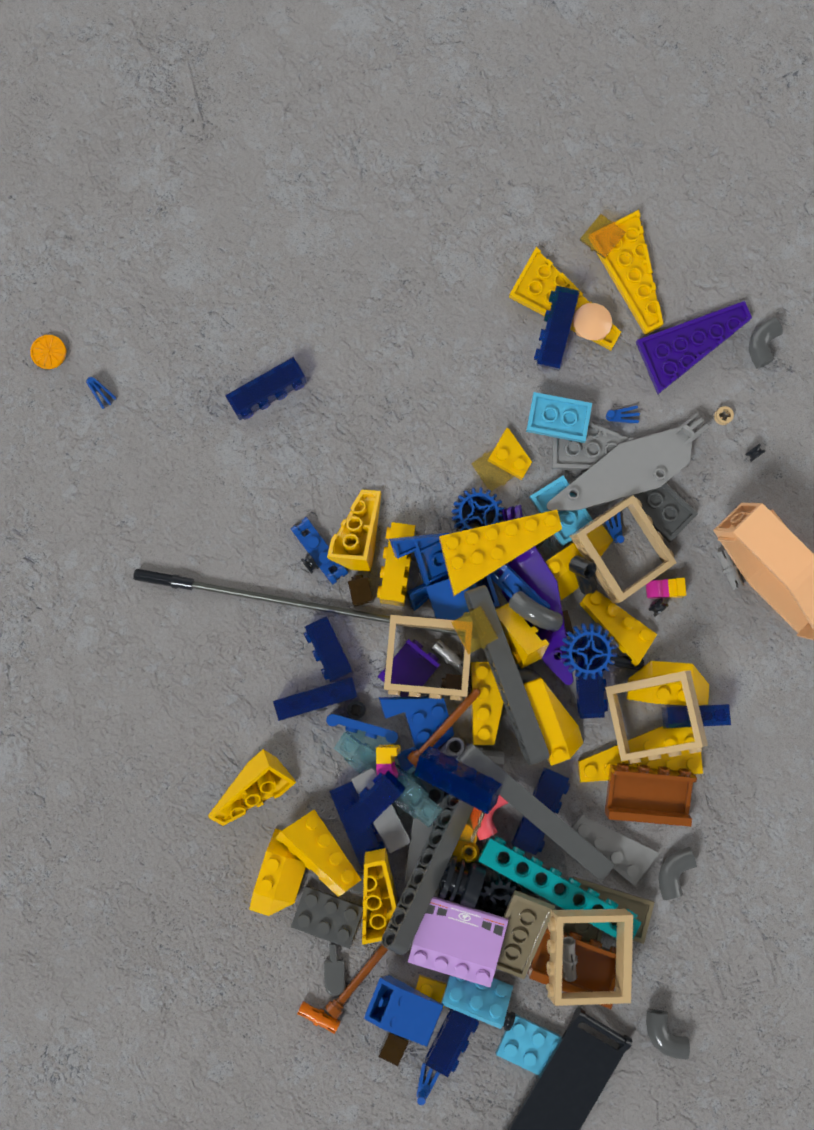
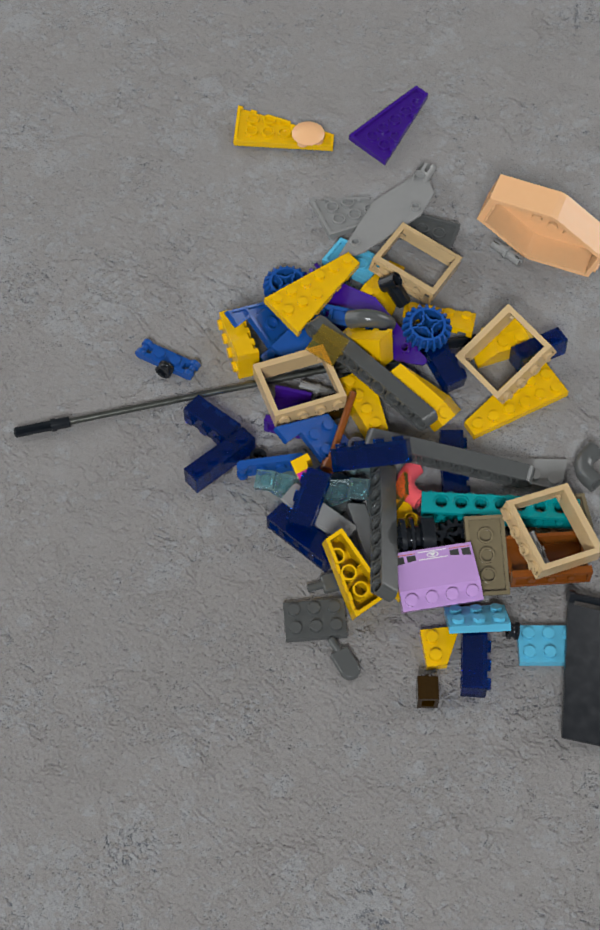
camera: 25 degrees left, 25 degrees down
(258, 781) = (200, 542): yellow wedge -> none
(266, 388) = (66, 266): clear blue brick -> none
(277, 879) = (256, 605): yellow wedge -> none
(318, 1017) = (349, 700): orange pin -> none
(319, 851) = (283, 563): yellow wedge -> none
(335, 1007) = (359, 684): dark orange piece -> none
(356, 538) = (194, 335): yellow wedge -> none
(360, 590) = (217, 372): dark brown brick -> none
(403, 1010) = (419, 652): blue slope -> none
(423, 1088) = (472, 718): blue piece -> none
(491, 474) = (283, 255): clear yellow piece -> none
(510, 455) = (291, 242): yellow wing -> none
(557, 328) = (283, 146): clear blue brick -> none
(559, 417) = (316, 199): medium azure plate -> none
(602, 236) = (285, 82): clear yellow piece -> none
(615, 415) = (365, 187): blue piece -> none
(615, 532) = (400, 259): blue piece -> none
(632, 273) = (318, 95): yellow wing -> none
(649, 794) = (533, 417): dark orange panel -> none
(658, 607) = (466, 295): black bush -> none
(666, 588) = (465, 281): leg -> none
(728, 410) = (443, 156): tan bush -> none
(755, 452) = (480, 173): black bush -> none
(760, 340) = (443, 107): dark grey cylinder -> none

